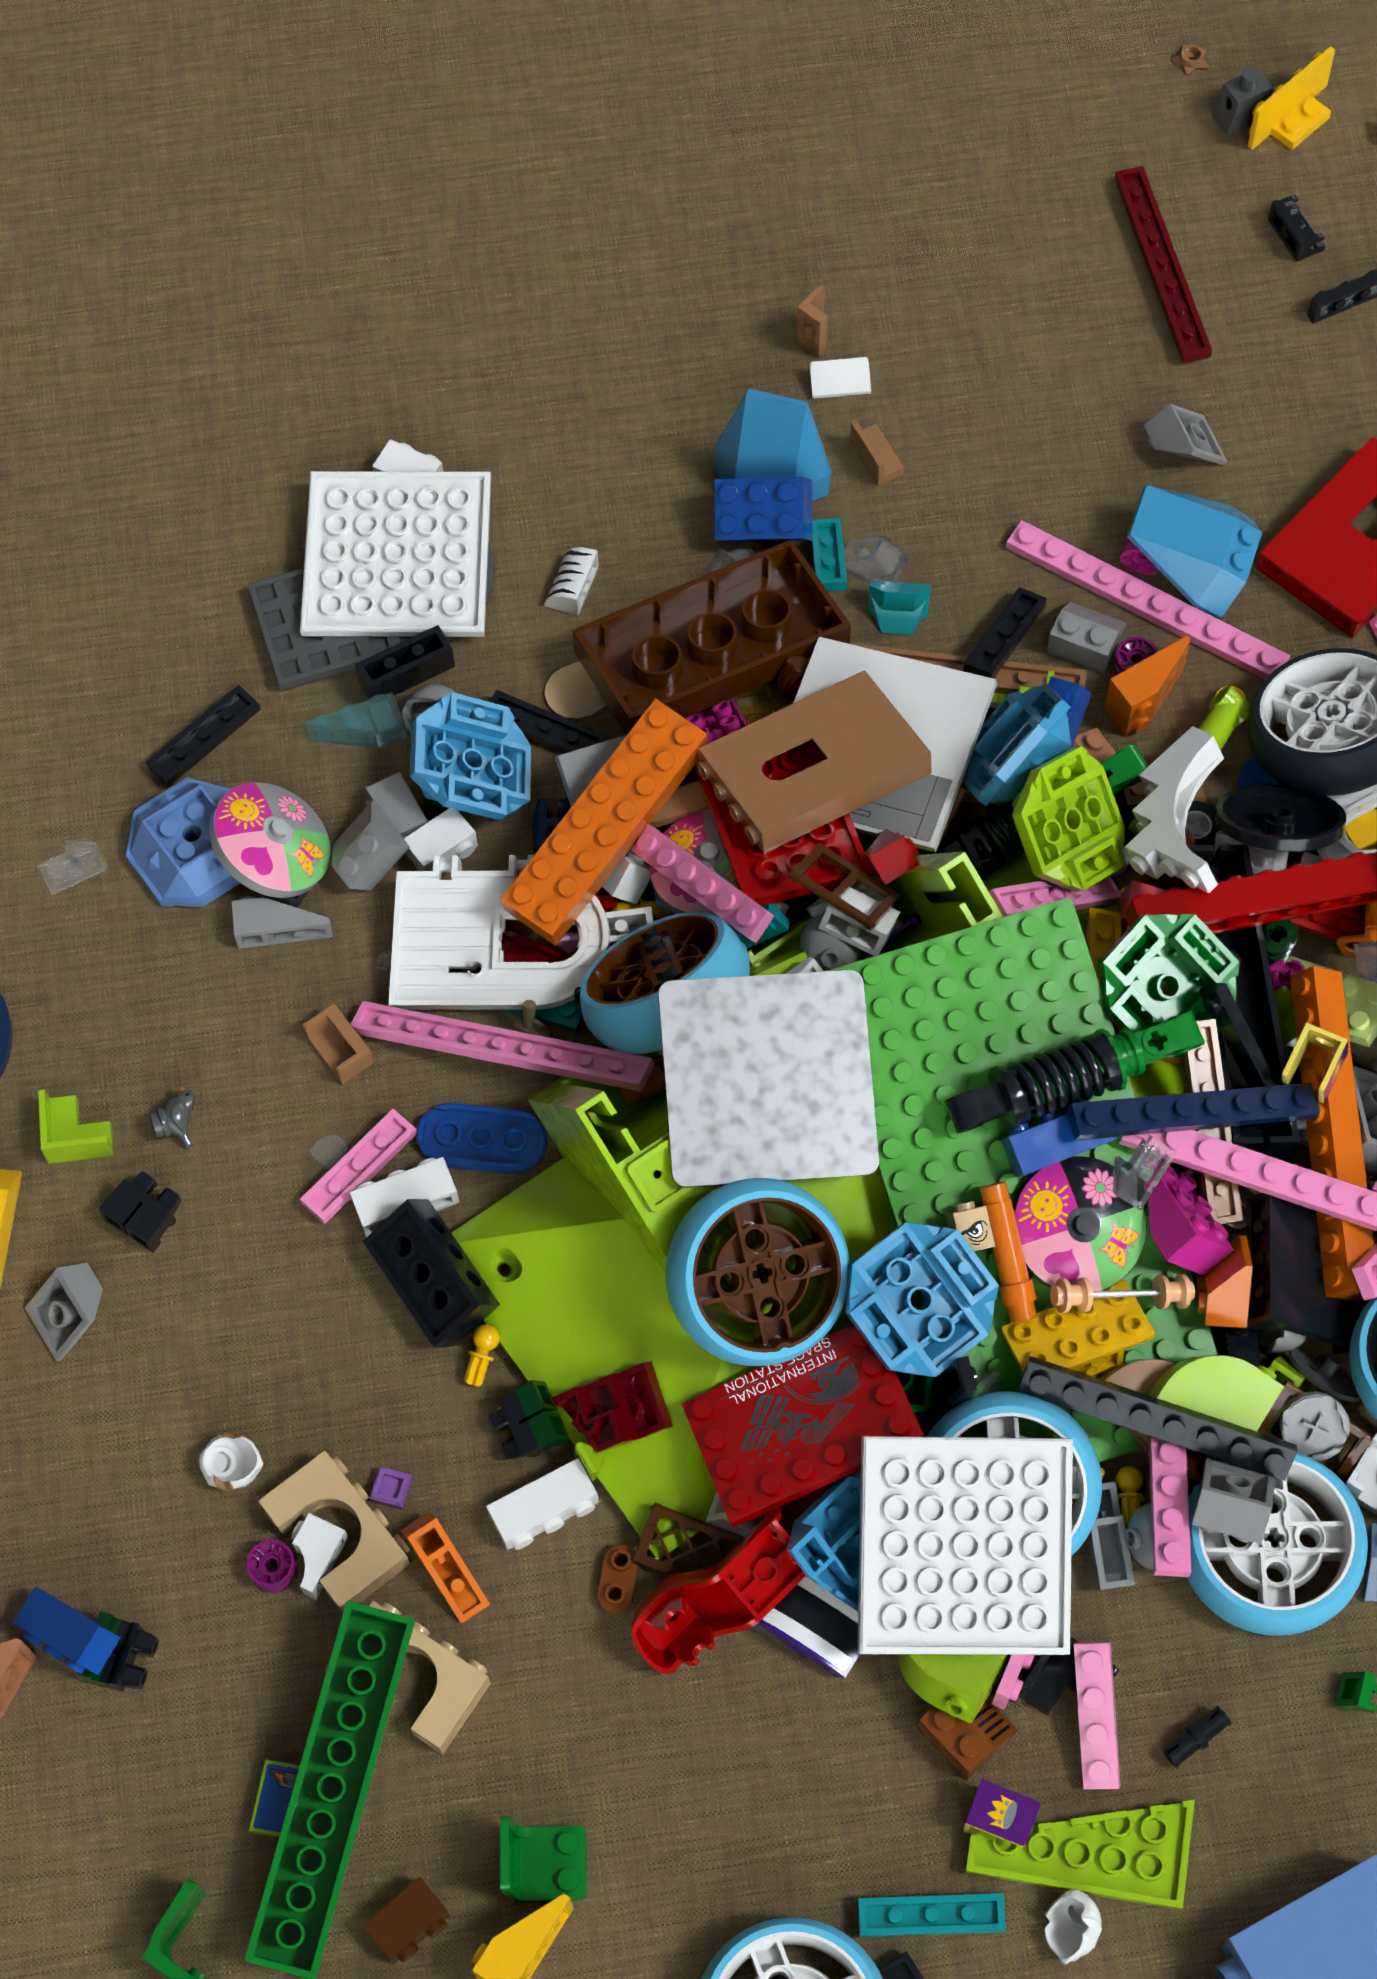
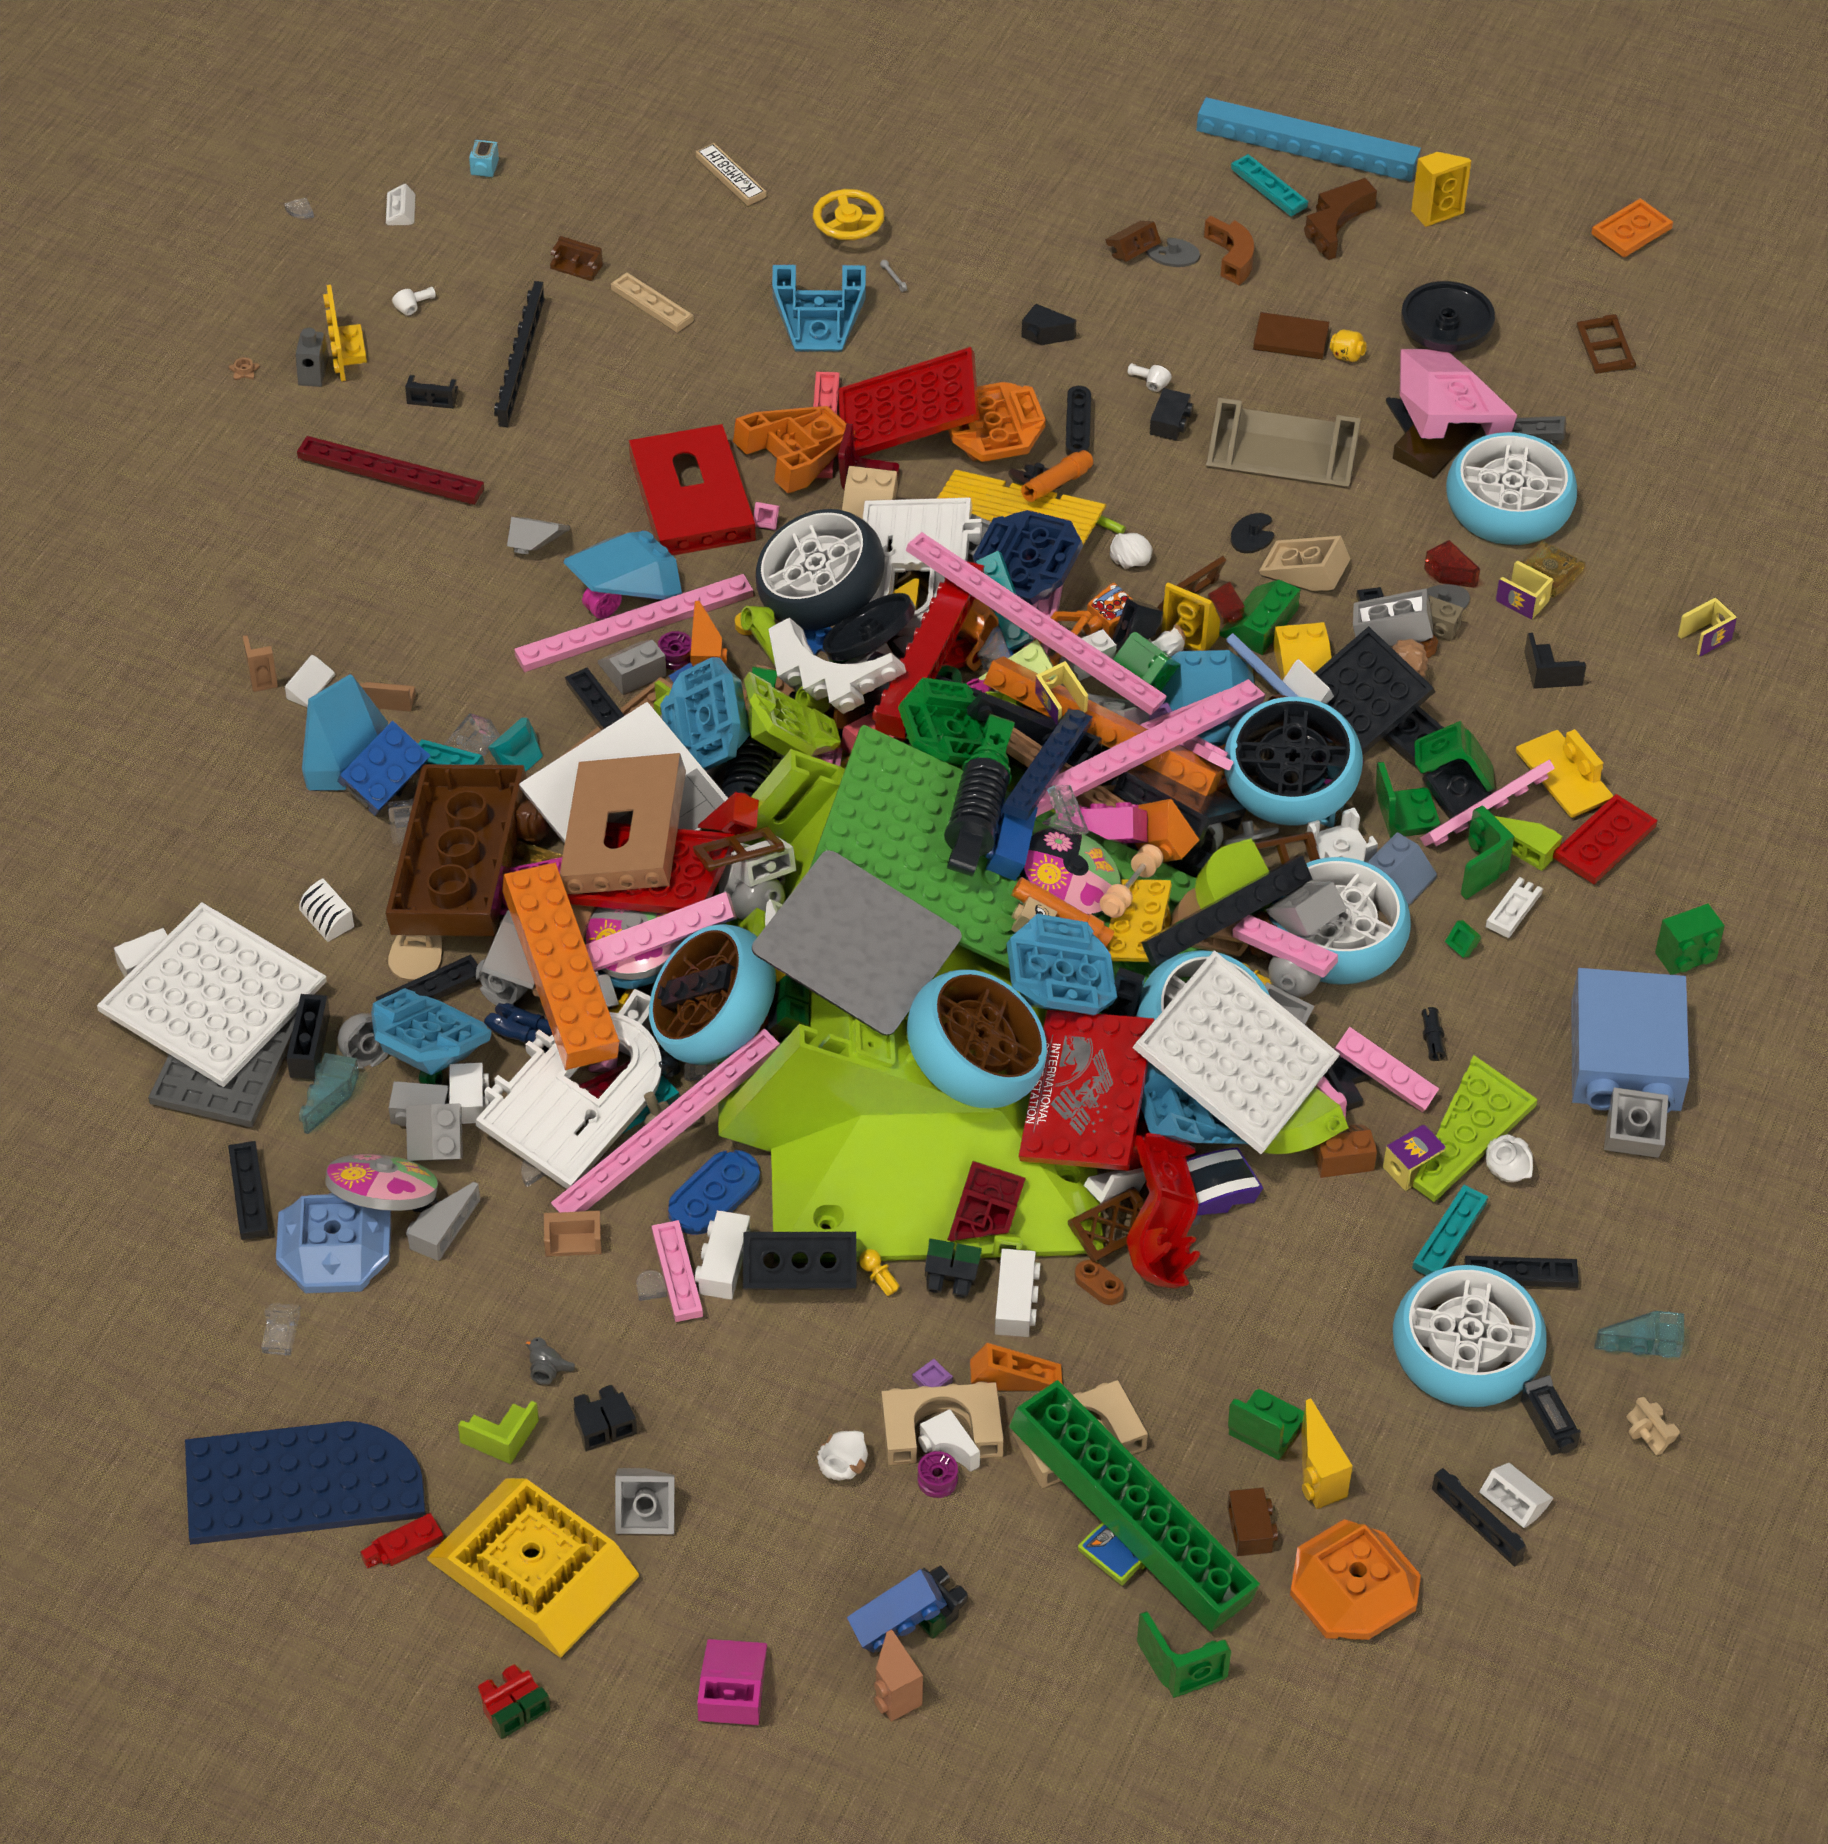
camera: 60 degrees left, 15 degrees down
(1315, 1425) = (1281, 846): light grey tile -> none

